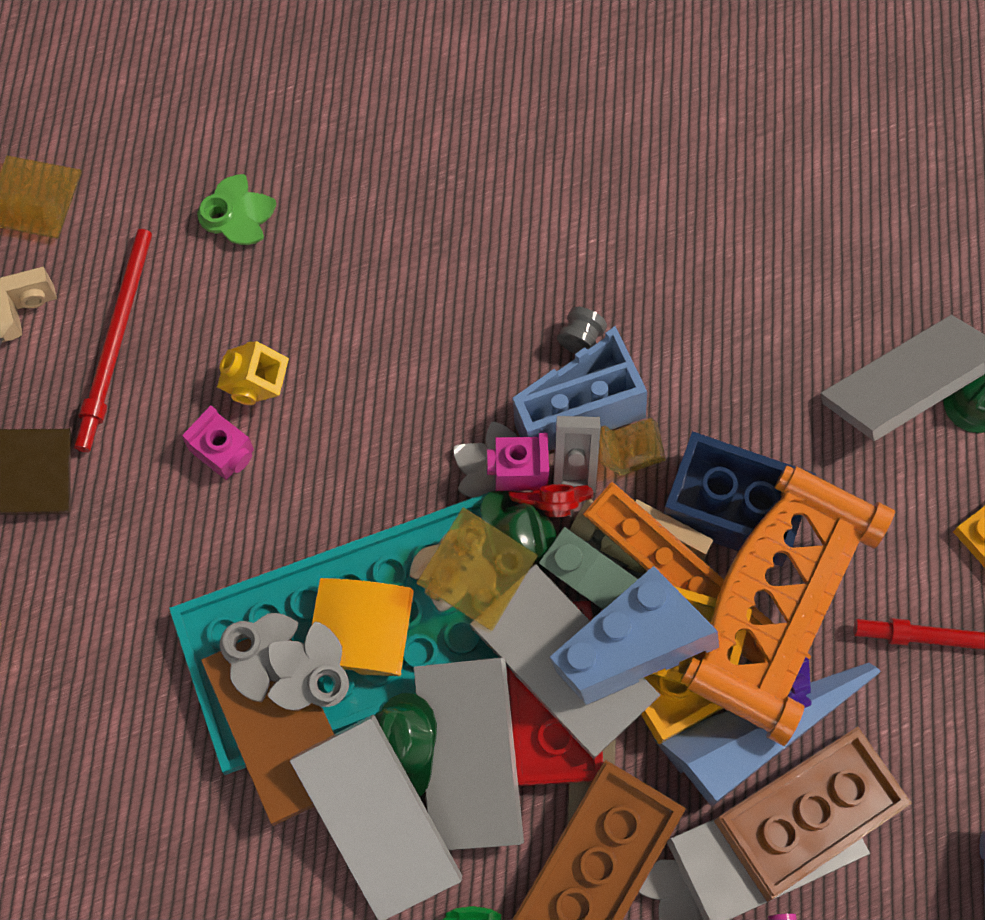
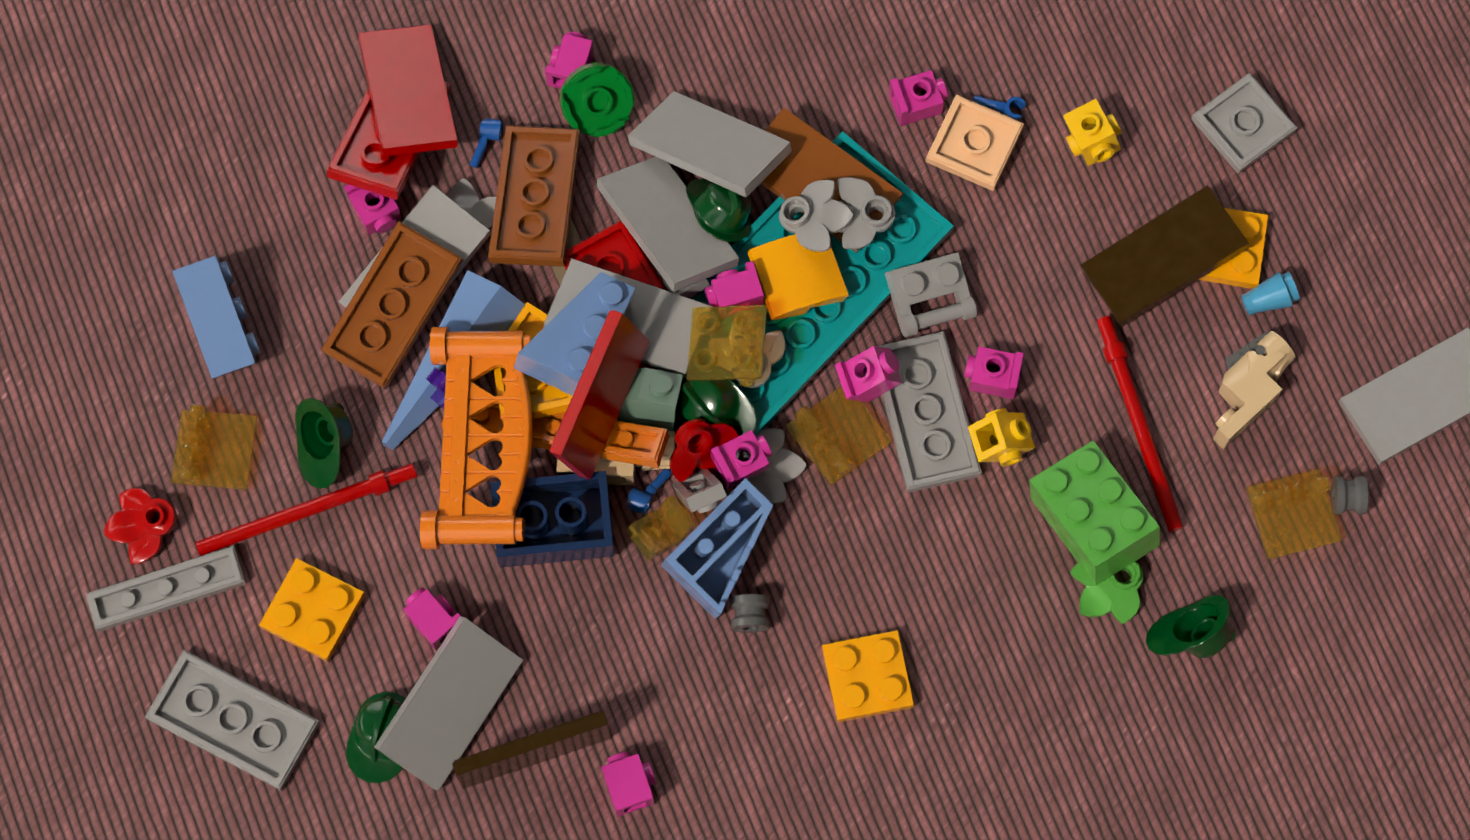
camera: 155 degrees right, 5 degrees up
(36, 719) = (1002, 107): none -> blue hand
(91, 693) = (974, 142): none -> light nougat plate
(130, 785) = (912, 107): none -> dark pink brick
(188, 136) = (1196, 628): none -> dark green piece
(209, 262) = (1094, 512): none -> bright green brick
(233, 561) = (926, 282): none -> light grey plate
(308, 447) = (929, 416): none -> light grey tile
(344, 494) = (869, 374): none -> dark pink brick
(406, 461) = (837, 435): none -> clear yellow hinge
(436, 635) = (735, 288): none -> dark pink brick
(499, 237) = (867, 676): none -> light orange plate
(637, 488) = (640, 500): none -> blue hand
(644, 557) = (599, 395): none -> red tile
(769, 237) = (628, 782): none -> dark pink brick
(853, 291) = (531, 749): none -> dark brown tile
(897, 466) = (430, 616): none -> dark pink brick
(945, 699) = (321, 438): none -> dark green piece

